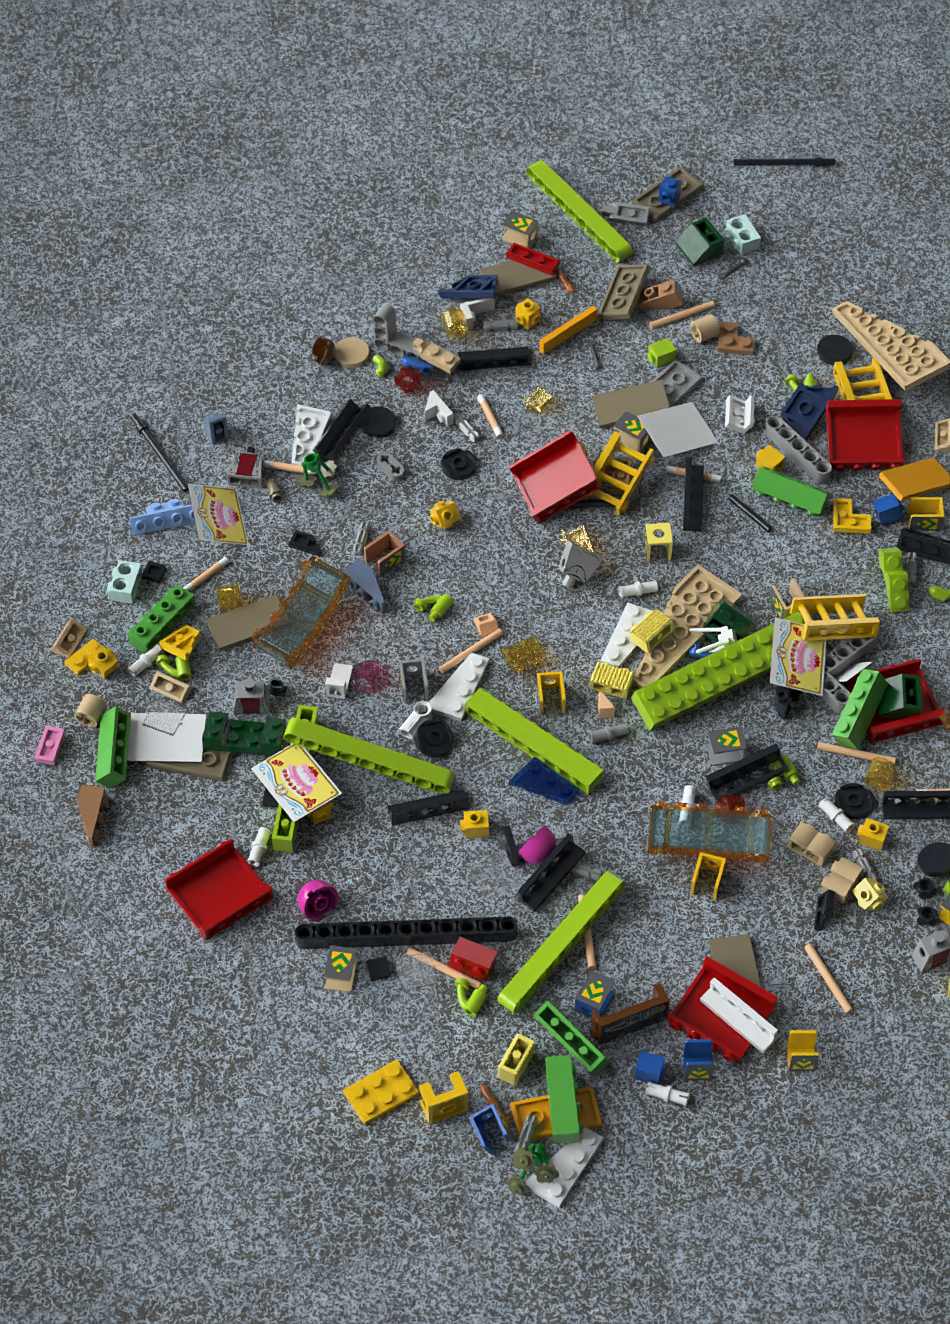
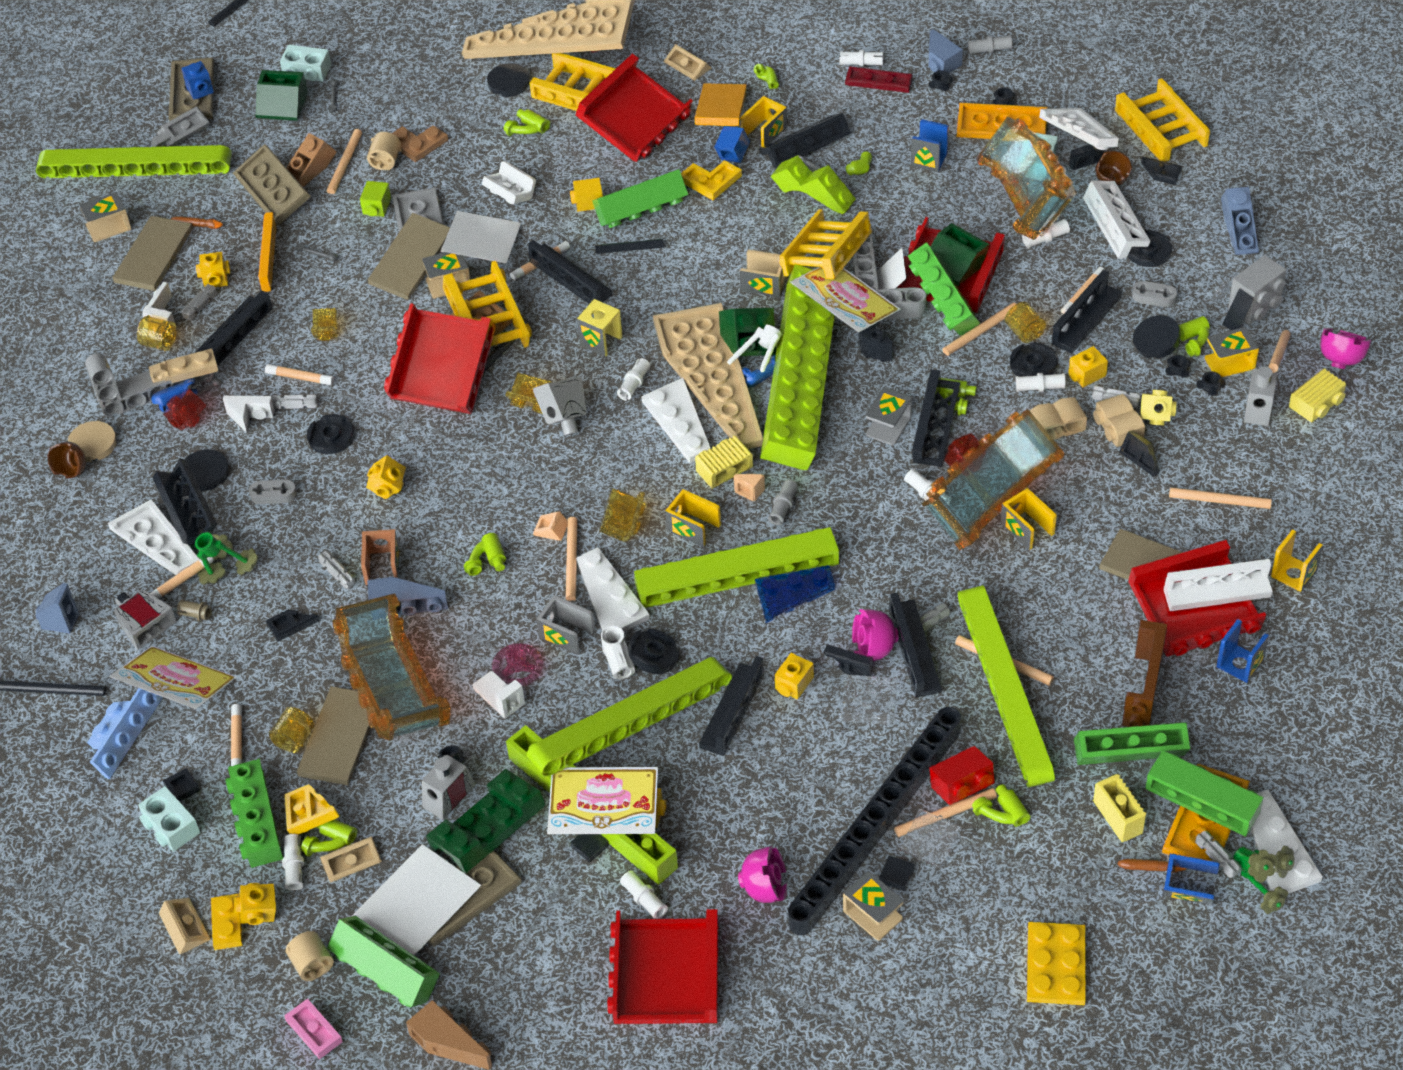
camera: 50 degrees left, 5 degrees down
(164, 717) = (389, 886): clear piece -> none
(383, 365) = (137, 424): lime arm -> none
(446, 1104) = (1121, 901): yellow panel -> none
(472, 287) = (132, 291): dark blue wing -> none
(533, 259) = (151, 228): red tile -> none
(594, 994) = (1095, 694): piece -> none
(650, 1067) = (1218, 698): blue brick -> none
(651, 630) = (700, 391): light yellow brick -> none
(667, 1093) = (1256, 703): white pin -> none
(798, 450) = (607, 166): light grey beam -> none
(807, 408) = (558, 134): dark blue wing -> none

